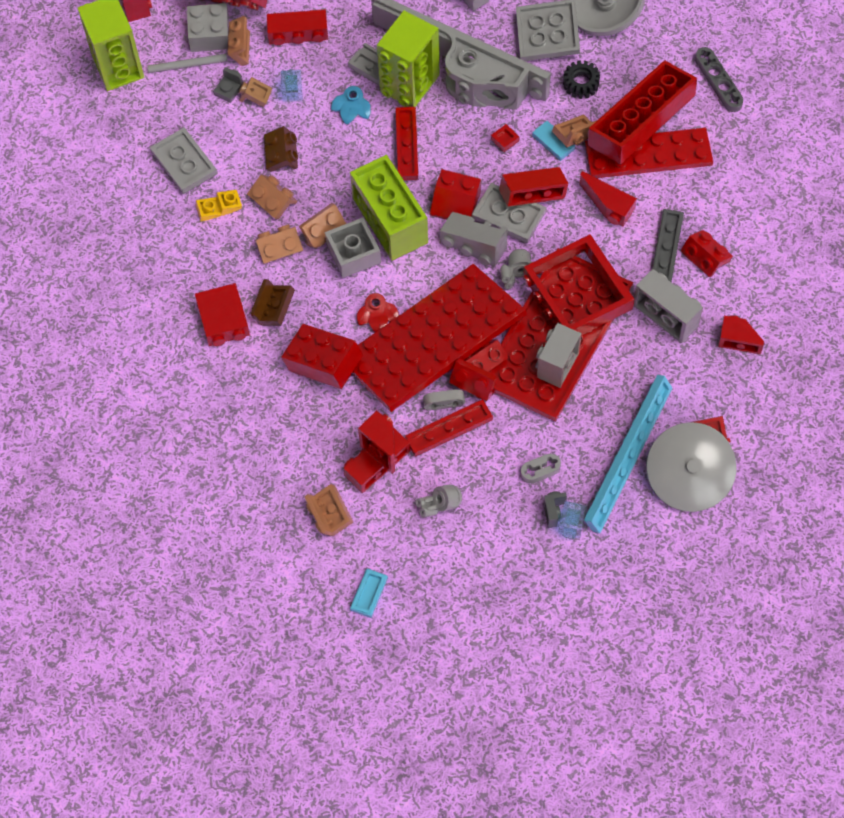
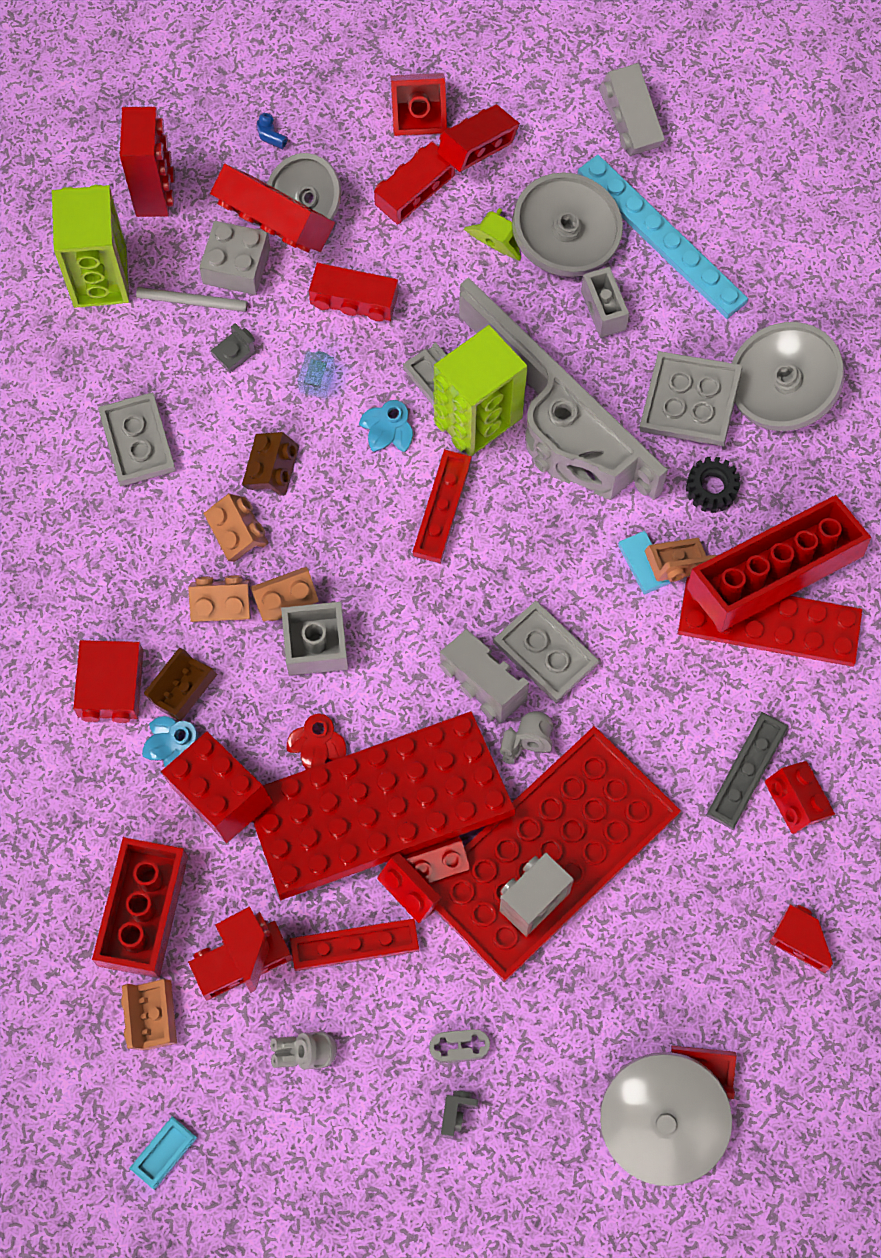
camera: 15 degrees right, 5 degrees up
(223, 204) = (158, 518): yellow slope -> none
(239, 41) = (268, 290): nougat bracket -> none
(255, 91) = (265, 369): medium nougat bracket -> none
(274, 342) = (165, 743): none -> dark azure plate
(298, 446) = (140, 907): none -> red brick
(389, 207) = (381, 598): lime brick -> none
(443, 399) = (361, 901): light grey beam -> none
(455, 194) = (480, 605): red slope -> none
(505, 138) = (578, 539): red plate -> none
(533, 186) = (590, 625): red brick -> none
(572, 520) = (474, 1141): clear light blue brick -> none
(588, 245) = (550, 822): red window -> none
(611, 201) = (692, 681): red slope -> none
(628, 454) = (586, 1066): medium azure plate -> none
(667, 305) = (716, 863): light grey brick -> none

